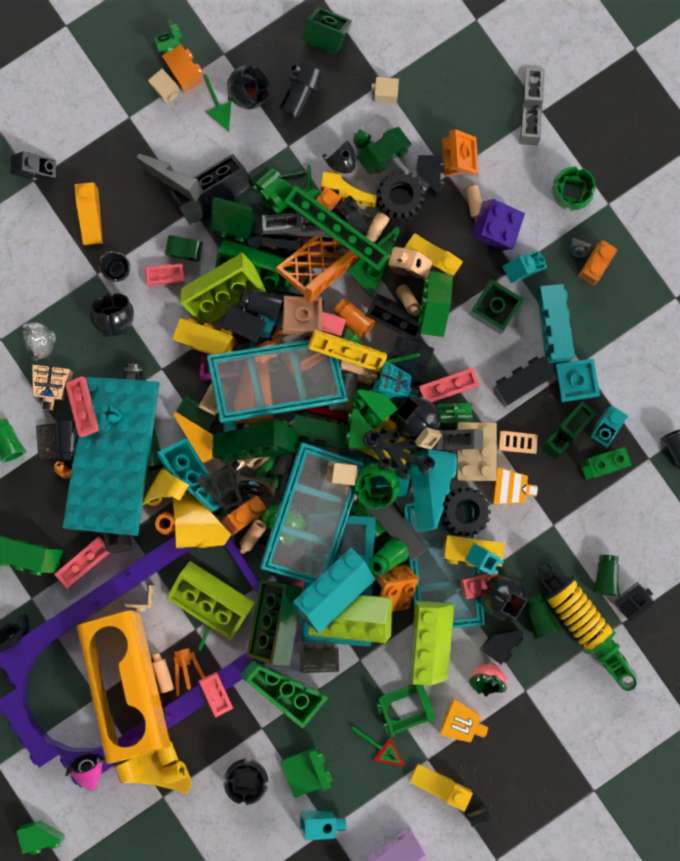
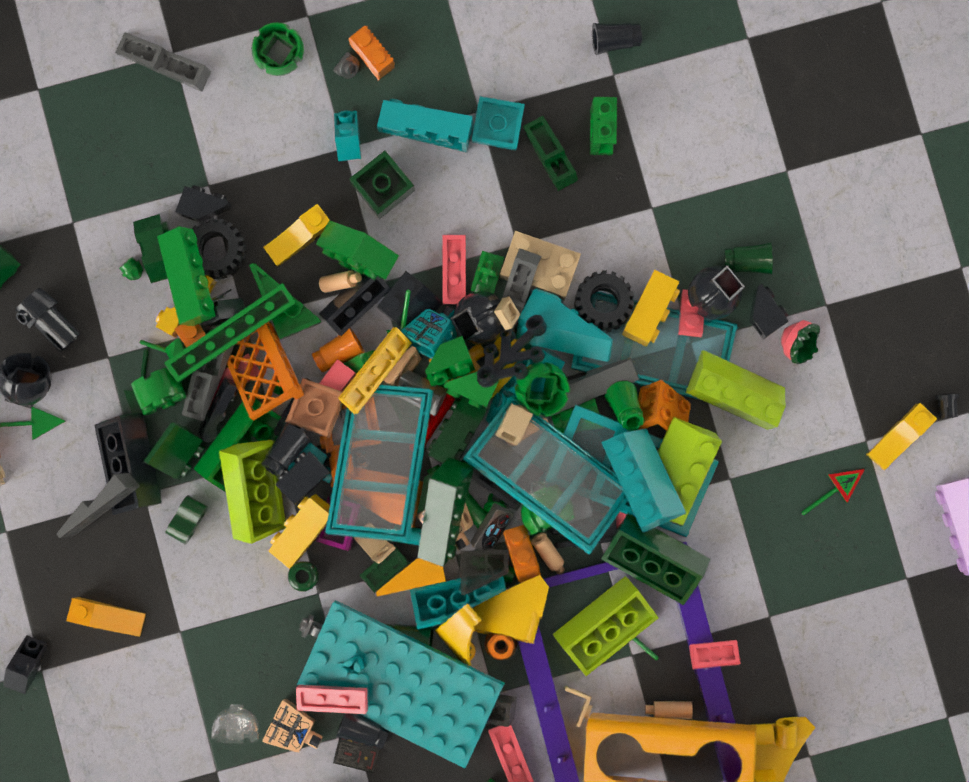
camera: 70 degrees left, 0 degrees up
(62, 470) = (397, 747): orange arm -> none
(112, 314) = (235, 628): black piece -> none
(114, 266) = (179, 607): black hair -> none
(165, 275) = (209, 552): coral plate -> none
(170, 352) = (303, 576): none -> dark green head
(184, 658) = (661, 680): orange plant -> none
(243, 794) = (837, 661): black piece -> none
(286, 693) = (743, 570): green wedge -> none
(306, 772) = (835, 581): green bracket -> none
(313, 824) = (899, 586): teal torso -> none
(319, 659) = (713, 524): clear smoke brick -> none
(343, 159) = (149, 298): black helmet -> none
(369, 179) = (186, 276): none -> green brick
(377, 227) = (241, 288): light nougat cylinder -> none
(385, 90) = (84, 222): tan brick -> none
(397, 726) = (817, 463): green panel -> none
(404, 263) = (295, 268): light nougat torso -> none
(459, 154) = (190, 163): orange bracket -> none
(461, 722) = (838, 388): light orange torso -> none
(474, 200) = (254, 166): light nougat cylinder -> none
(483, 559) = (665, 298): teal brick -> none
(498, 225) = (289, 149): dark purple brick -> none
(502, 442) = (538, 232): light nougat slope -> none
(511, 488) = (594, 240): torso -> none
(523, 380) = (477, 183): black brick -> none
(585, 622) = (773, 211): piece -> none
(607, 576) = (729, 167): dark green plant -> none
(608, 425) = (561, 106): teal slope -> none
(634, 601) = (767, 148): black piece -> none

